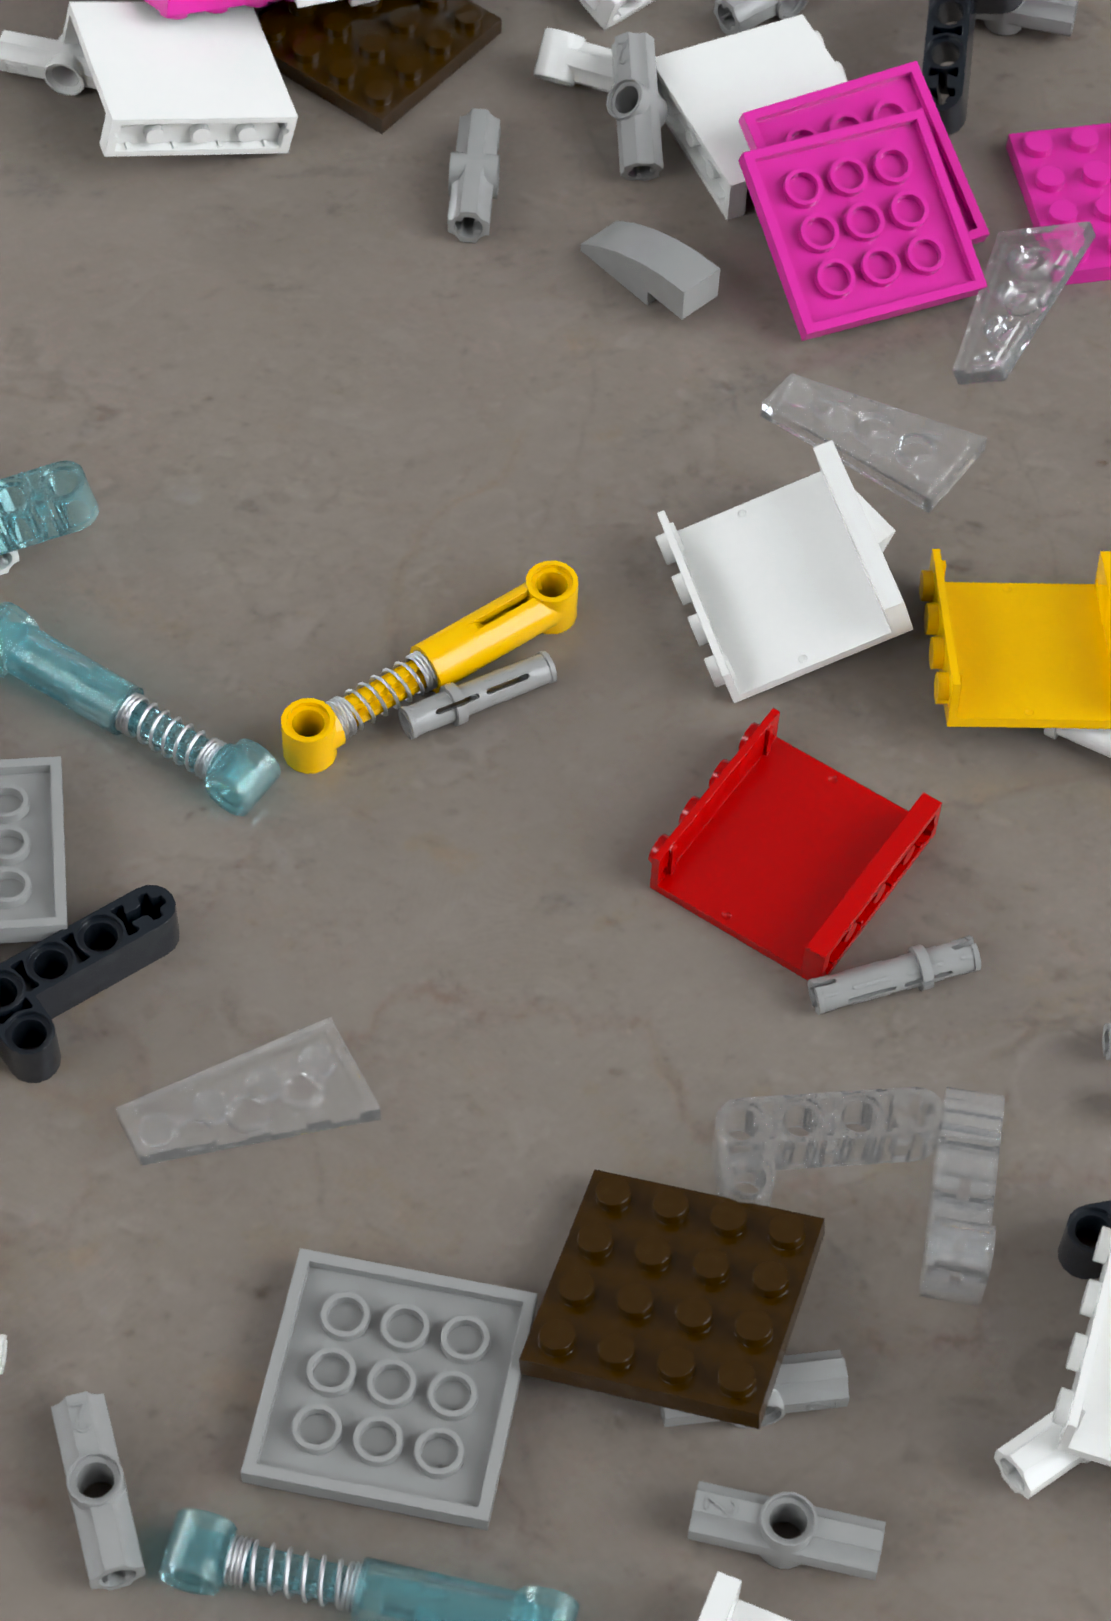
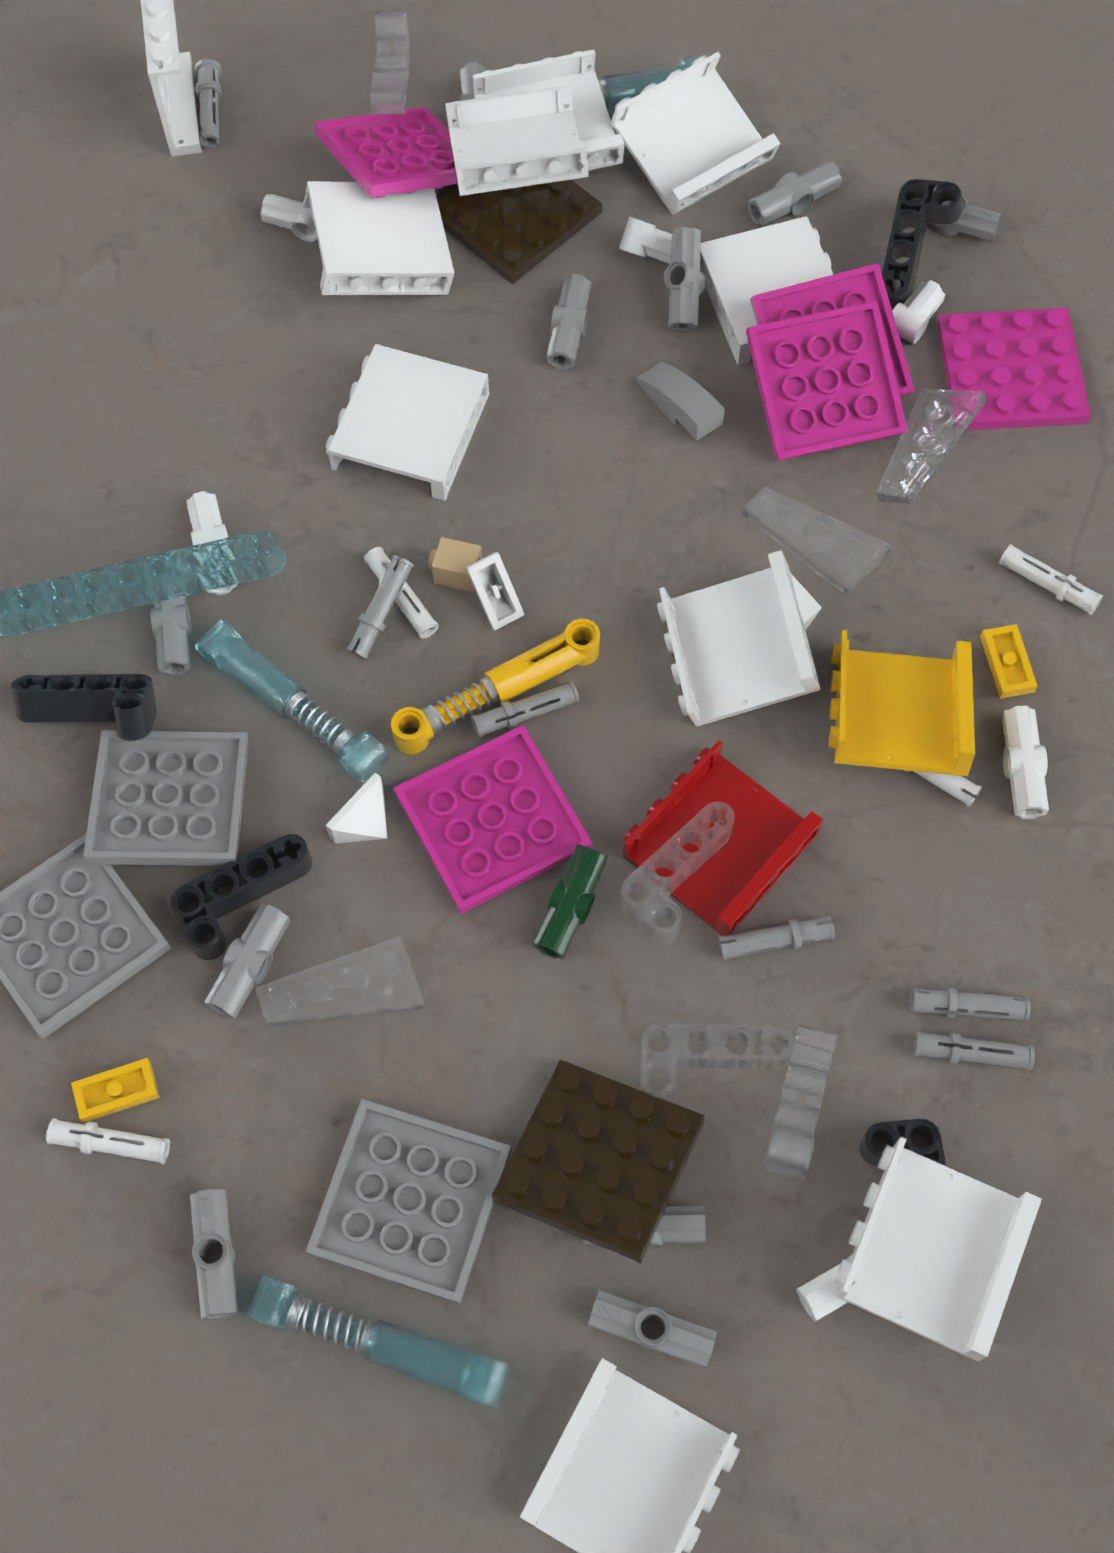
camera: 10 degrees right, 10 degrees up
(99, 1074) = (247, 961): none -> light grey piece
(234, 589) = (373, 620): none -> light grey pin
(249, 859) = (362, 816): none -> white slope
(255, 312) = (410, 417): none -> white panel
(256, 537) = (407, 599): none -> white pin
(348, 506) = (450, 563): none -> tan brick
(413, 535) = (495, 591): none -> white slope
(448, 848) = (492, 819): none -> dark pink plate
(582, 949) = (570, 902): none -> dark green piece
(742, 883) = (682, 865): none -> clear beam
(979, 128) = (915, 313): none -> white piece

